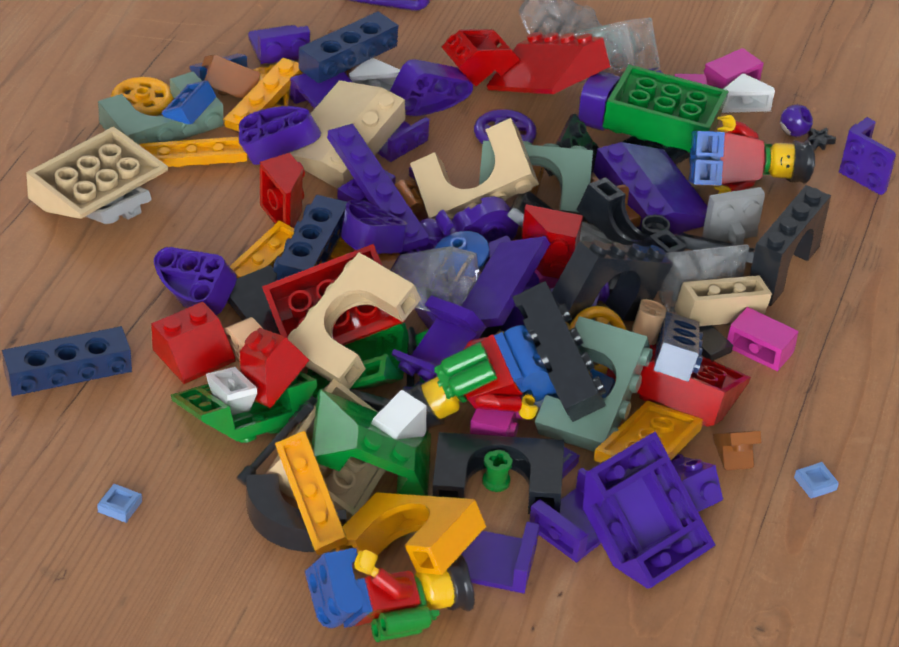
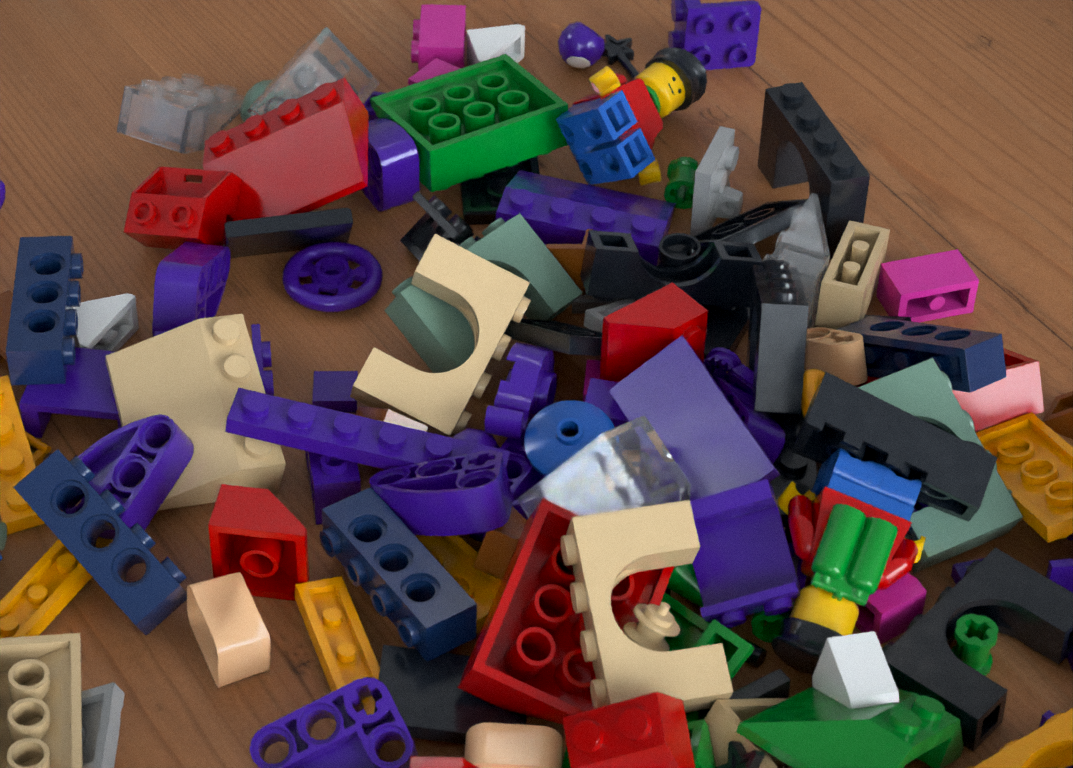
camera: 50 degrees left, 0 degrees up
(228, 144) = (48, 493): none -> dark blue brick
(231, 215) = (228, 628): none -> light nougat piece
(349, 331) = (653, 626): none -> tan wheel
(505, 95) = (286, 232): none -> black tile

